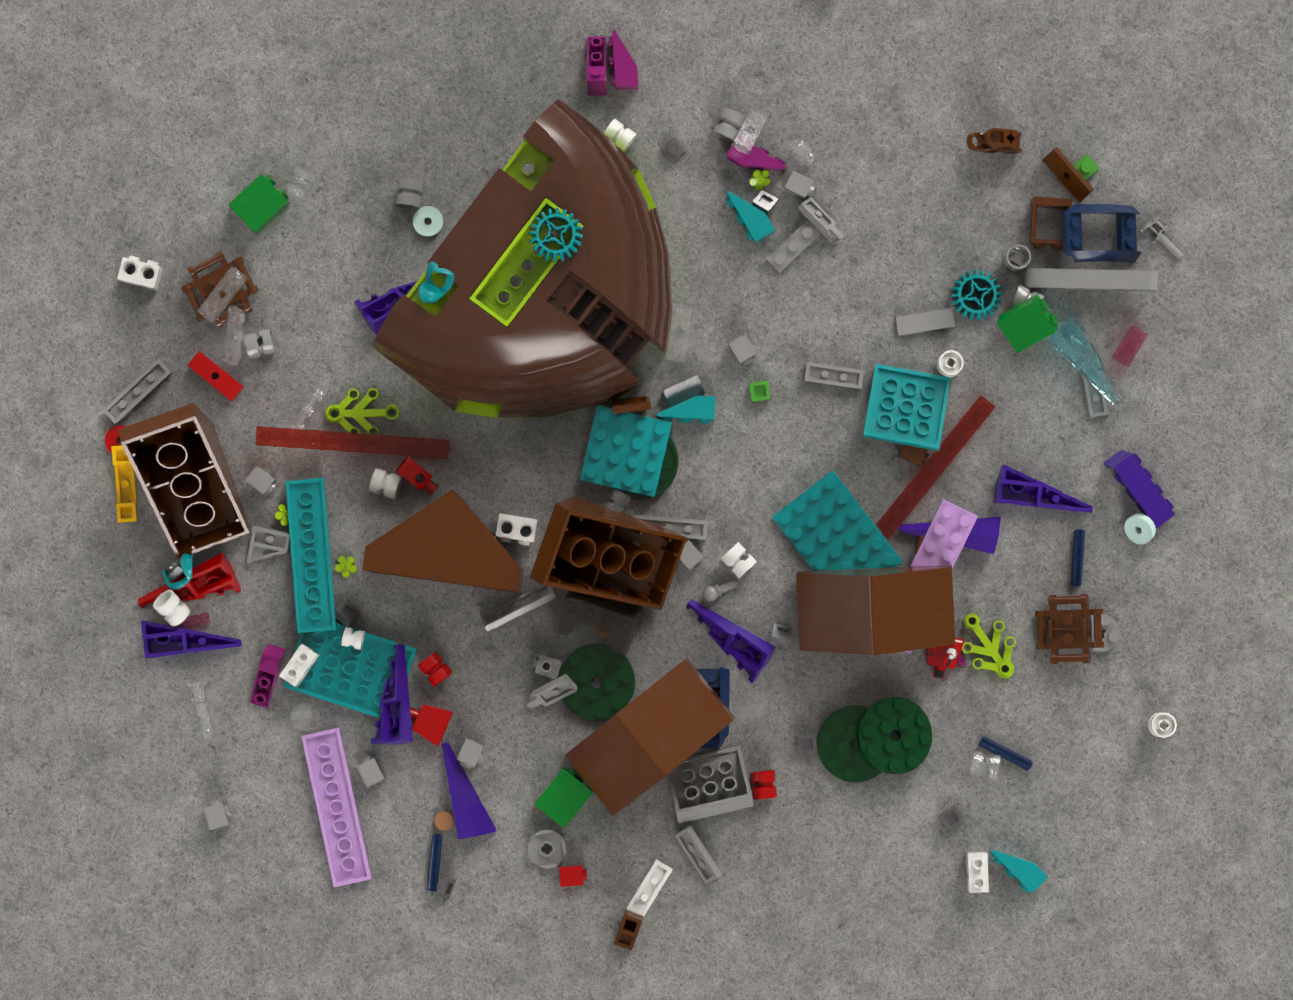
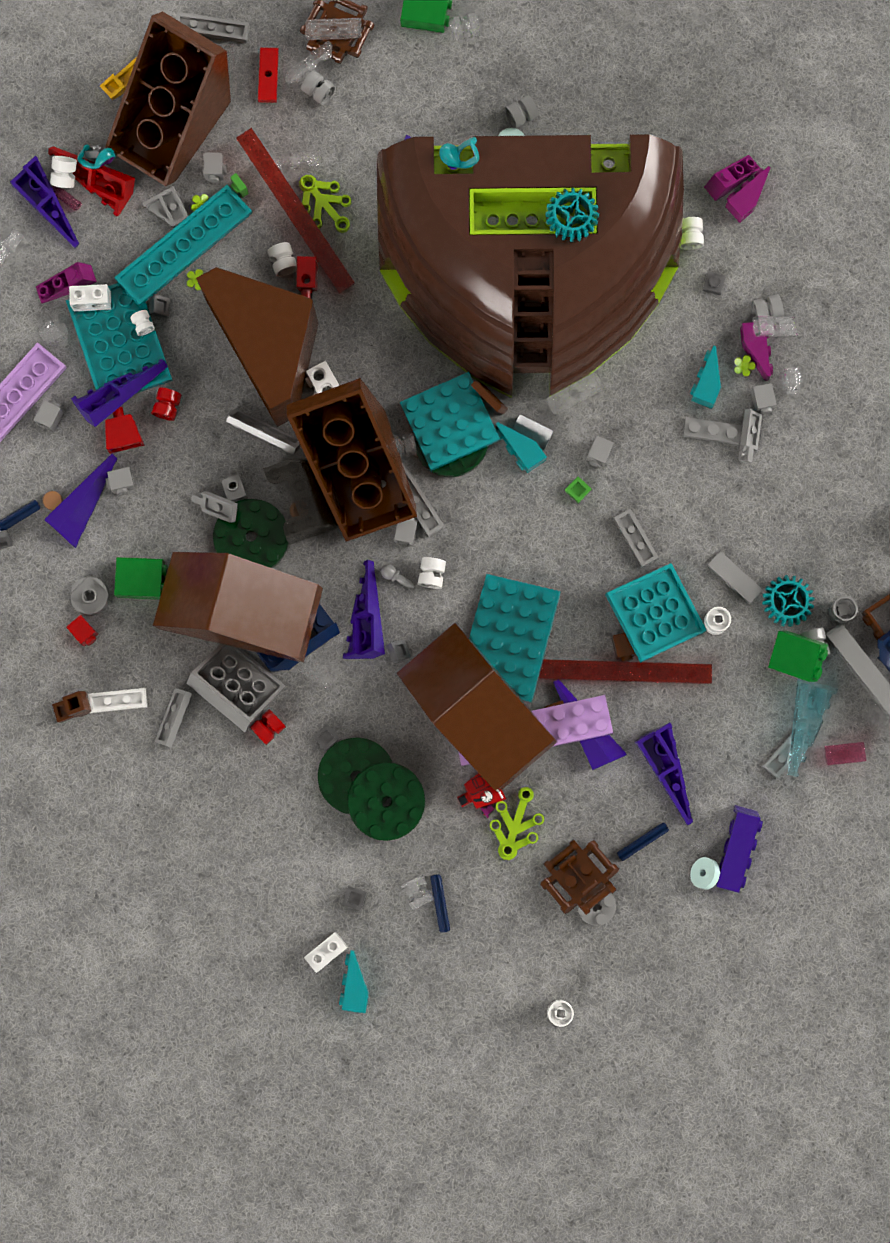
camera: 50 degrees right, 5 degrees down
(293, 472) = (238, 185): none -> bright green plate
(765, 202) = (729, 382): plate -> none

